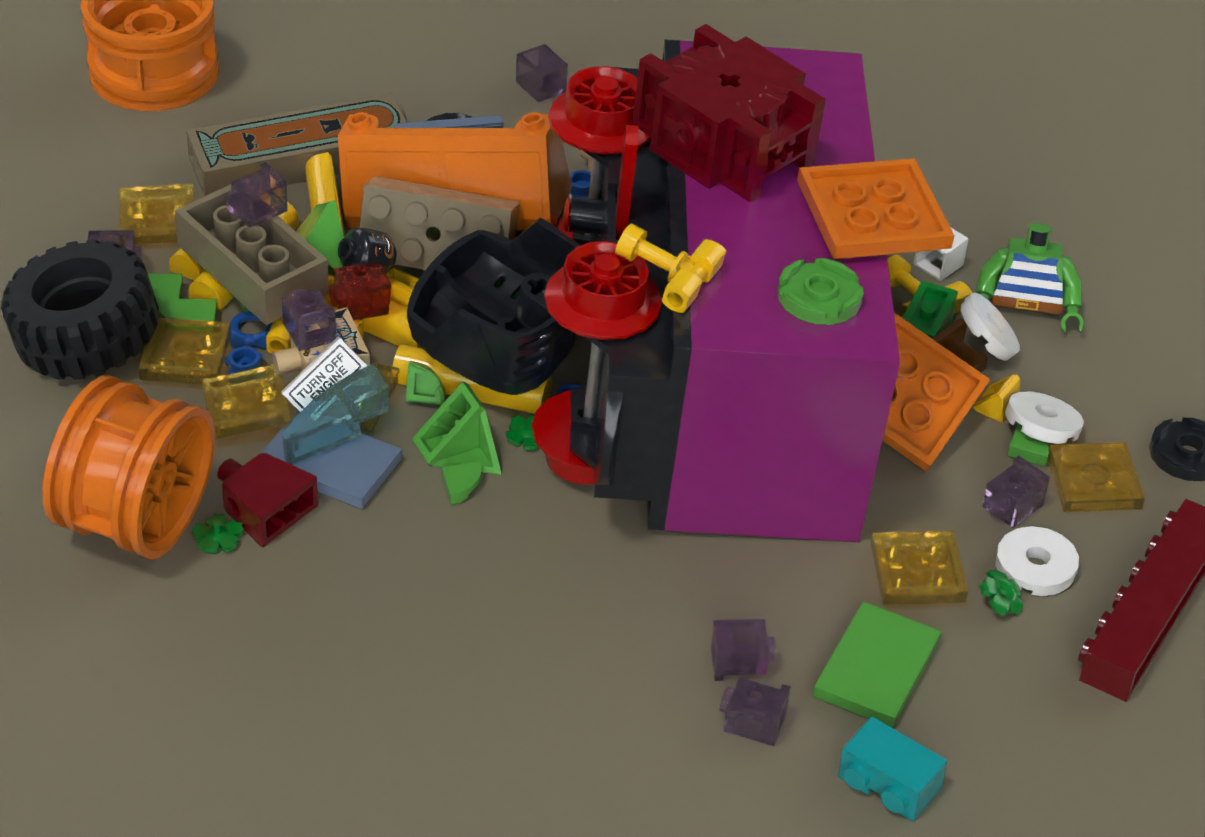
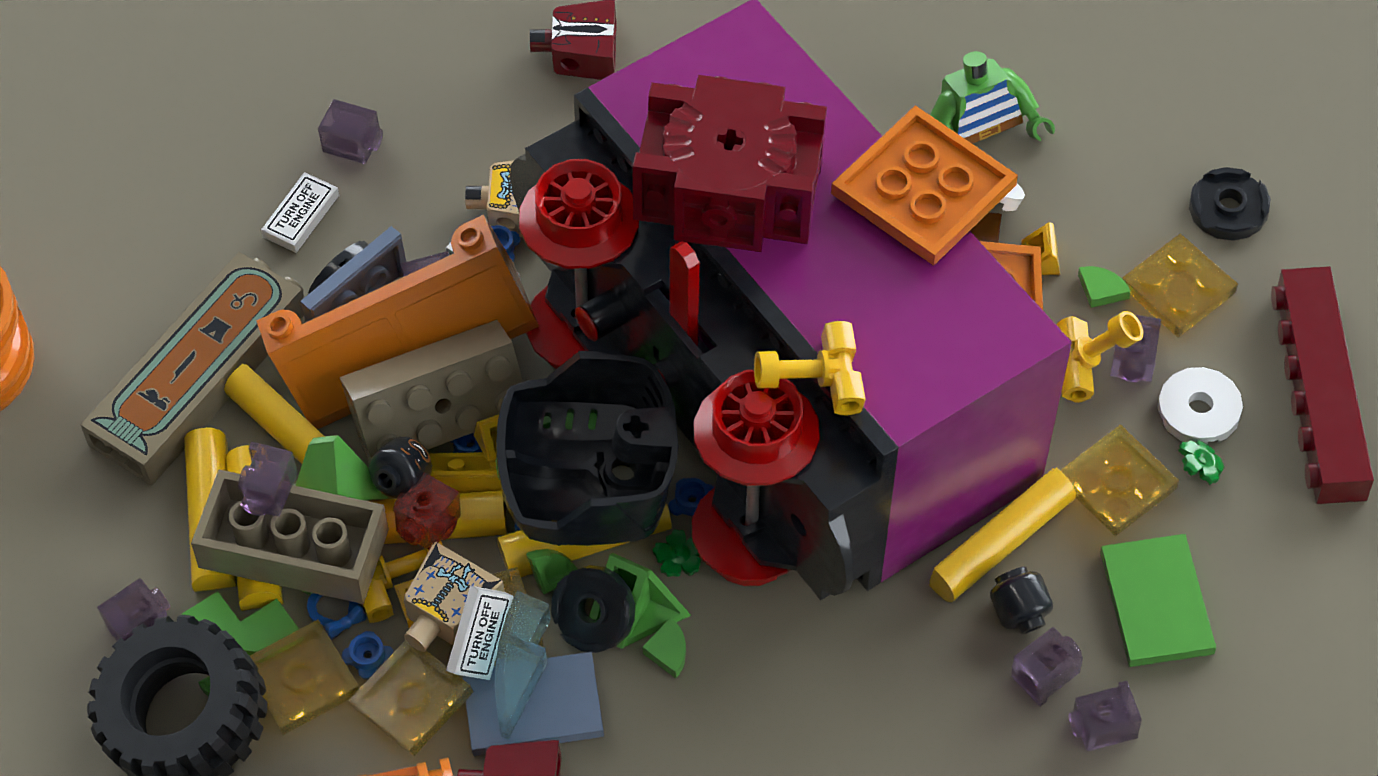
camera: 30 degrees left, 15 degrees up
(152, 211) = (129, 537): clear yellow plate -> none
(307, 308) = (427, 593): clear purple brick -> none
(439, 426) = (614, 601): none -> black tile
(468, 100) = (300, 212): none -> white tile
(761, 594) = (1021, 600): none -> black head
(788, 547) = (1002, 535): none -> yellow brick
(820, 291) = (951, 310): bright green tile -> none
(893, 767) = (1254, 699): teal brick -> none
(951, 259) = (879, 116): white piece -> none
(970, 467) = (1086, 352): none -> yellow bar
(1044, 417) = (1117, 245): white tile -> none

